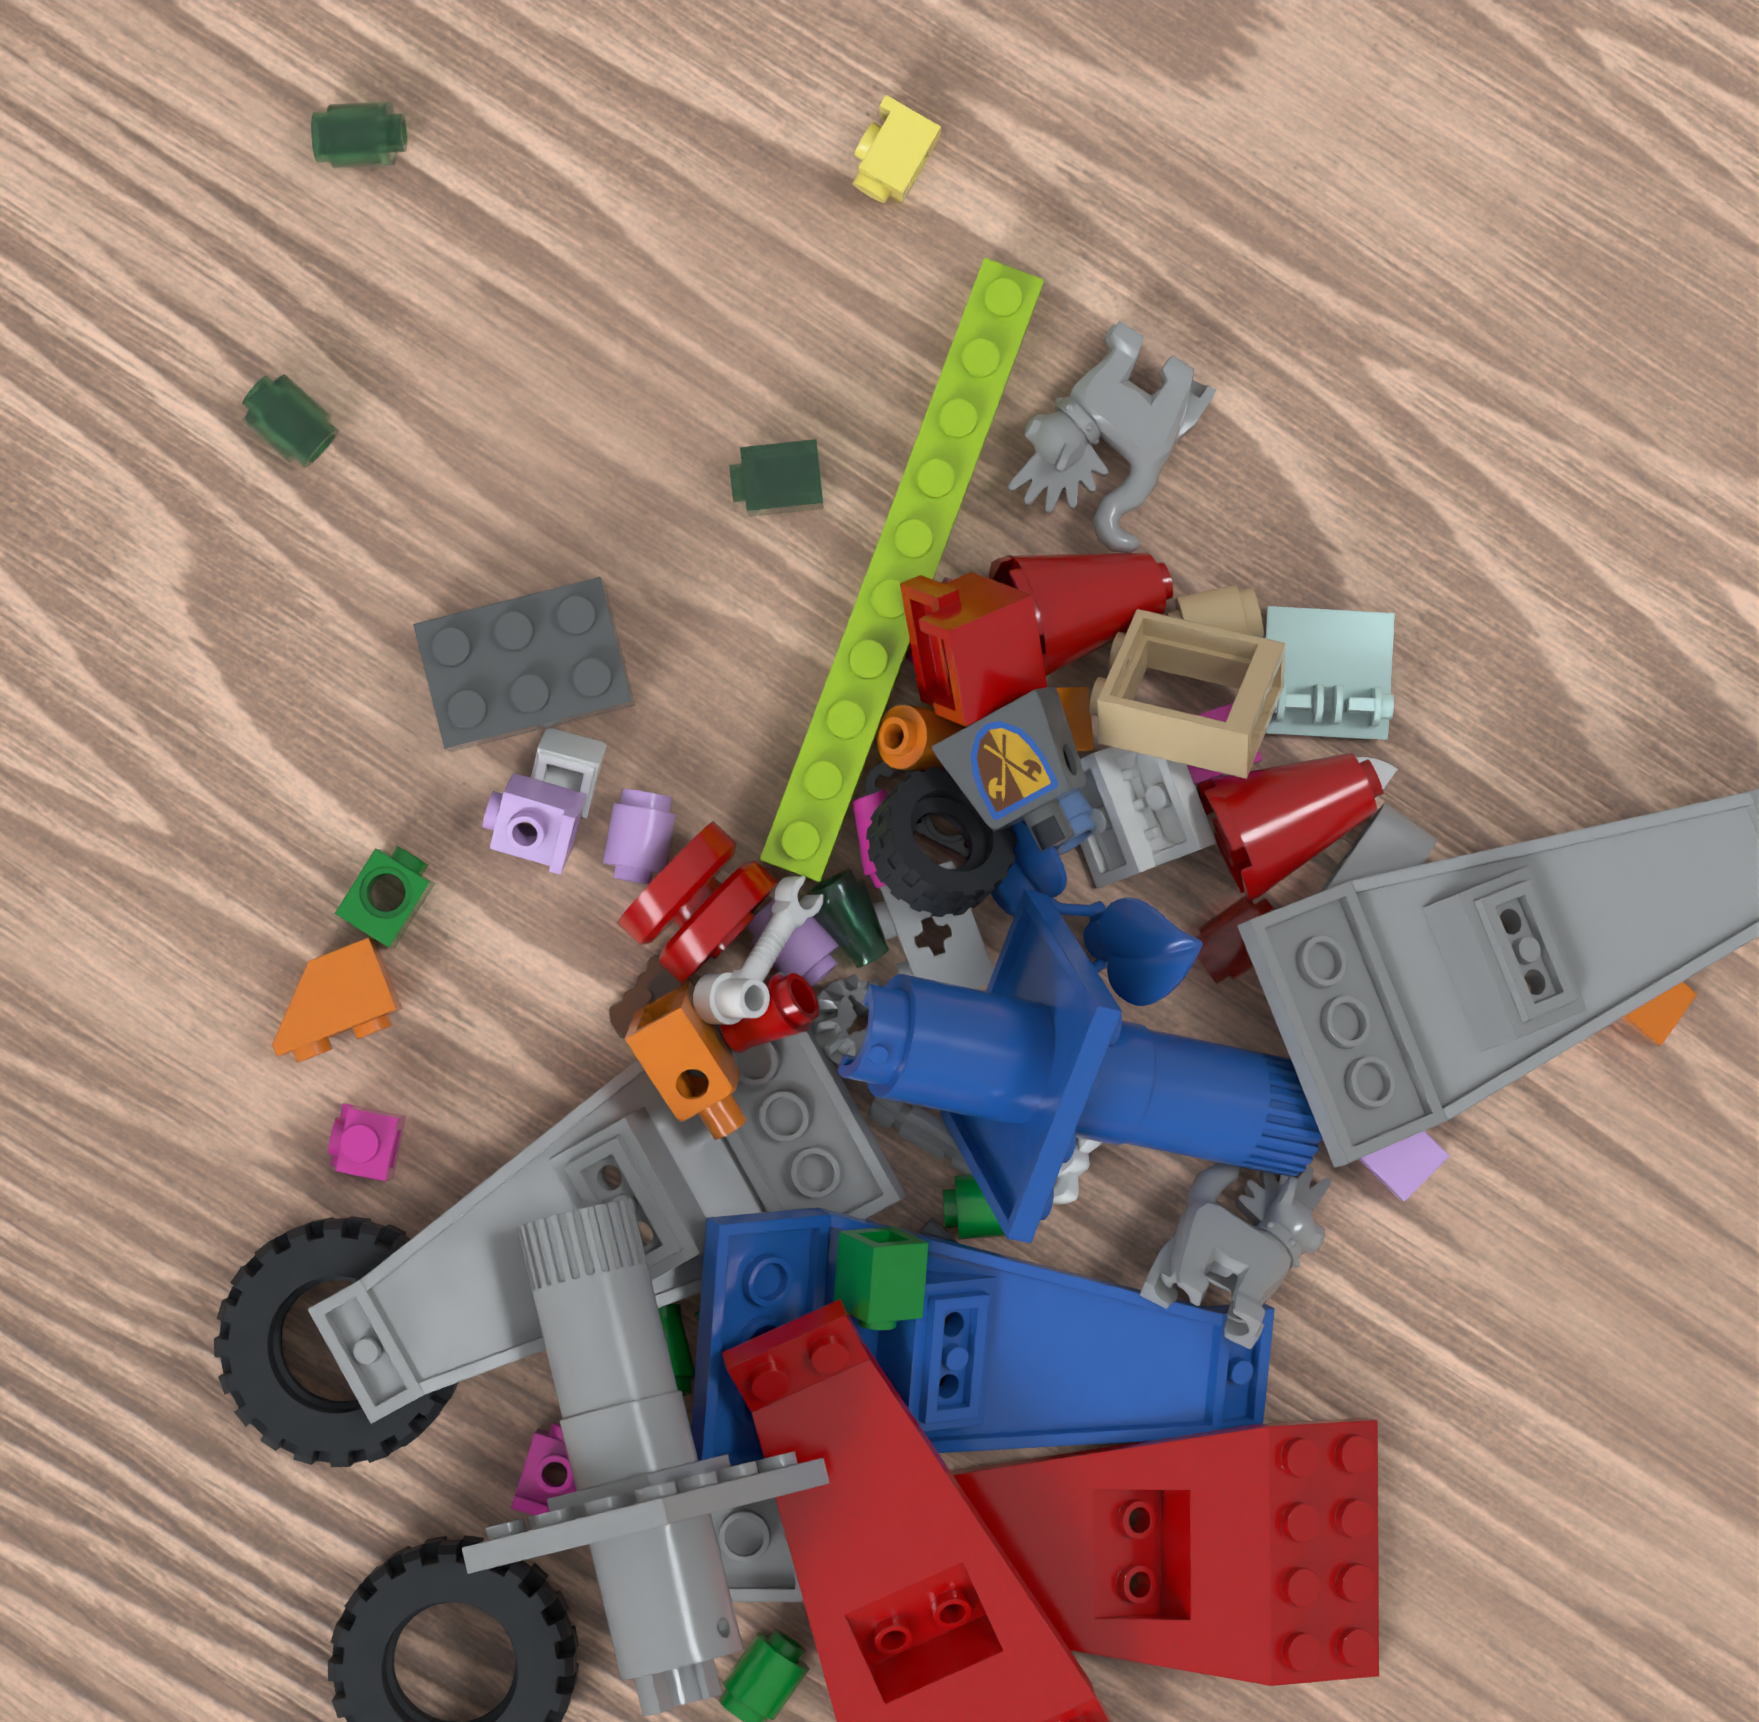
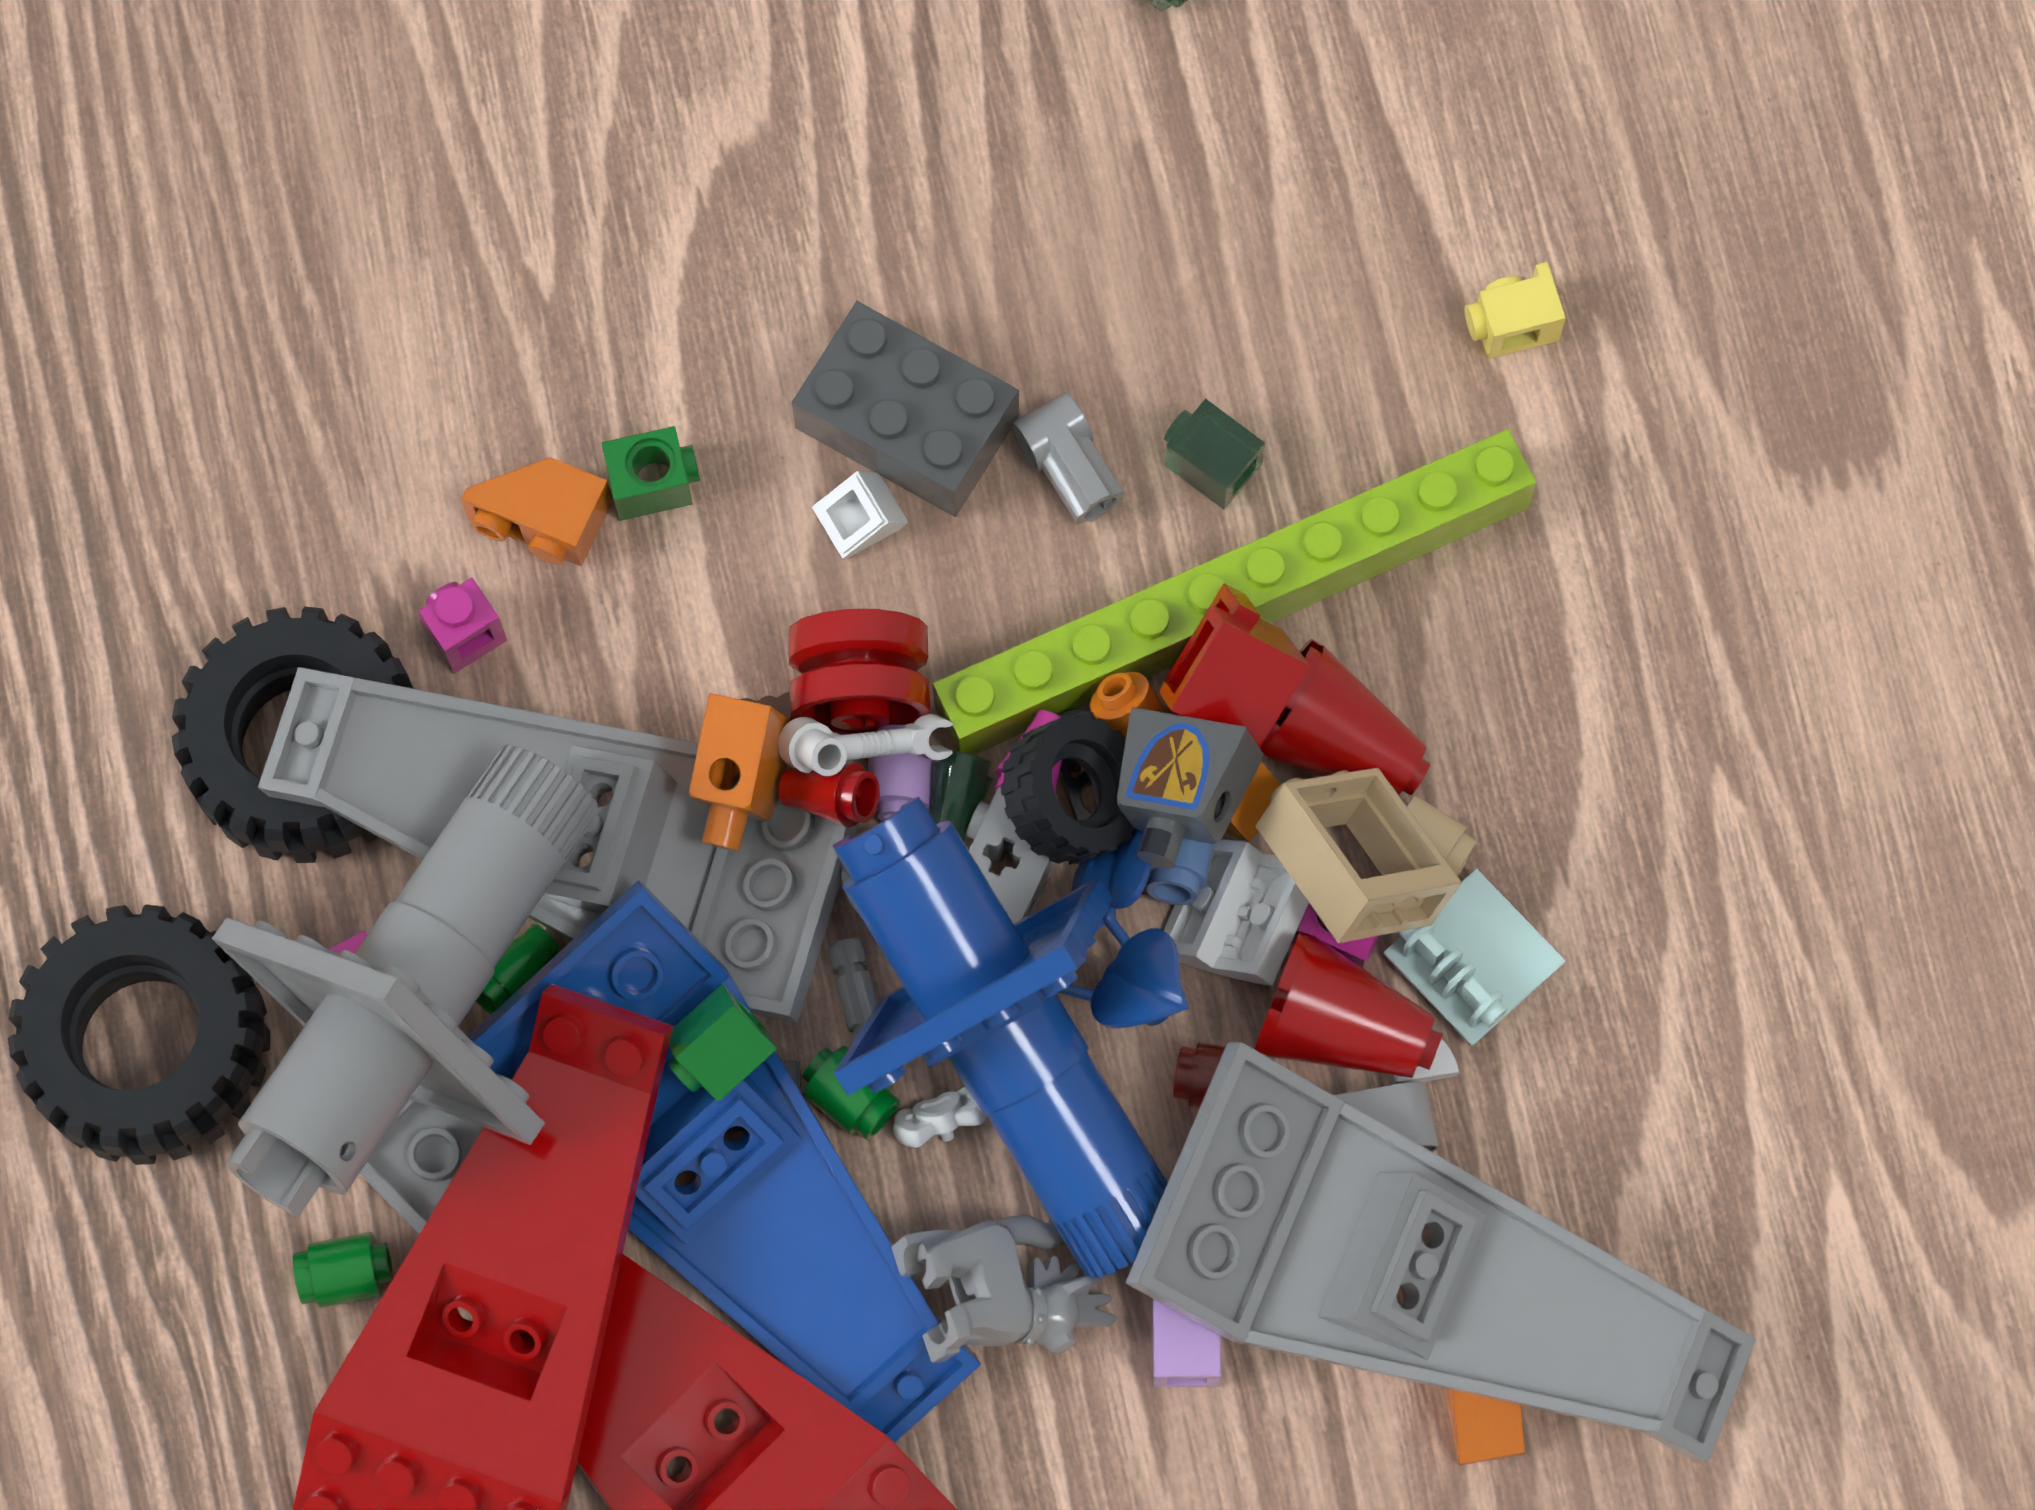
camera: 45 degrees right, 15 degrees down
(289, 419) = (913, 103): clear green brick -> none
(551, 811) = (821, 524): lavender brick -> none
(639, 835) = (871, 587): lavender brick -> none
(663, 581) = (1061, 445): none -> light grey piece
(1124, 417) = (1503, 643): light grey animal -> none

